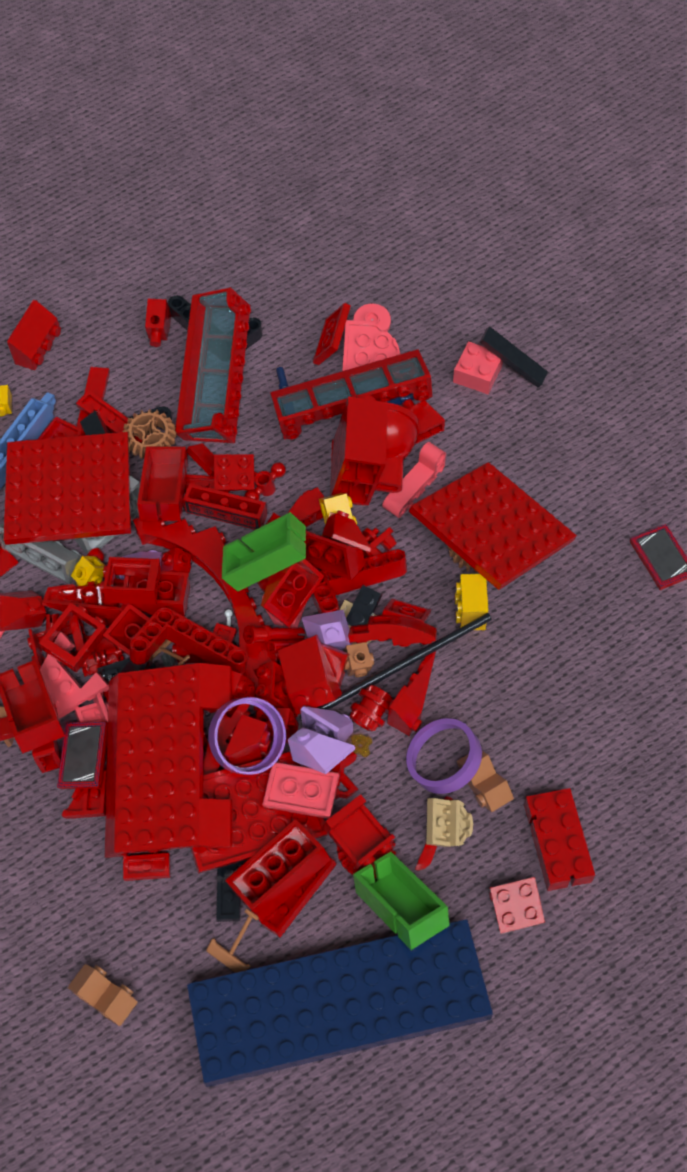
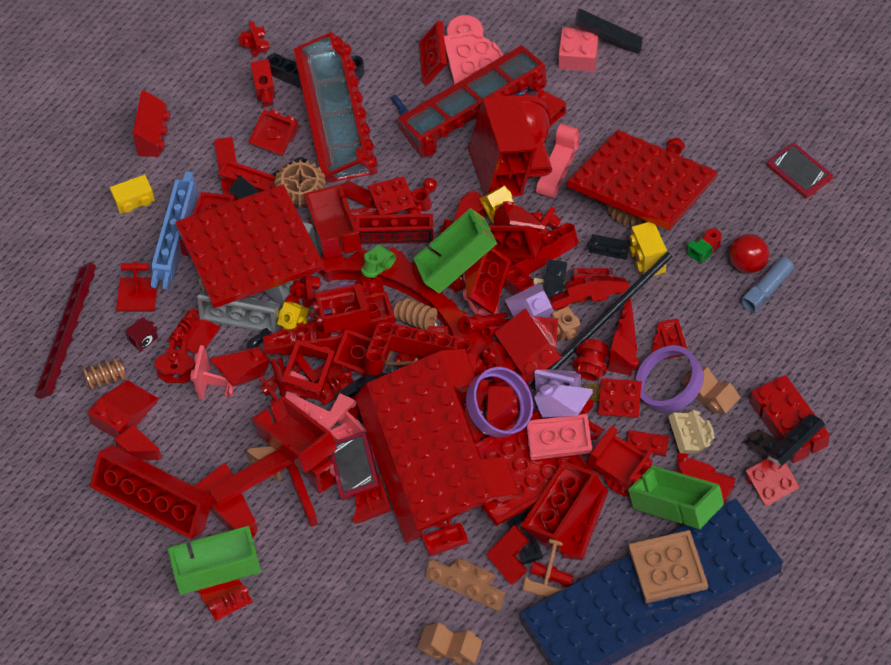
camera: 15 degrees left, 5 degrees down
(22, 778) = (302, 495): none -> red tile
(42, 588) = (256, 340): none -> black arm
(107, 544) = (303, 289): none -> red hips
(149, 374) = (274, 132): none -> red plate
(153, 922) = (468, 581): none -> nougat bracket
(160, 274) = (251, 40): none -> red hips
(190, 538) = (377, 261): none -> bright green piece
(199, 907) = (504, 555): none -> red tile
(210, 604) = (415, 313): none -> nougat piece
(245, 945) = (555, 575): none -> red pin
(361, 983) = (668, 566): none -> nougat plate
(385, 760) = (619, 398): none -> red hinge
(398, 819) = (647, 441): none -> red plate
(435, 586) = (609, 246): none -> black hinge
(446, 884) = (706, 472): none -> red panel
(462, 706) = (669, 334): none -> red wing
(535, 614) = (705, 247): none -> green leg
(537, 880) = (783, 450): none -> black plate
(542, 493) = (678, 147): none -> red plate
(577, 636) = (749, 253): none -> red piece
(586, 676) = (767, 284): none -> sand blue piece

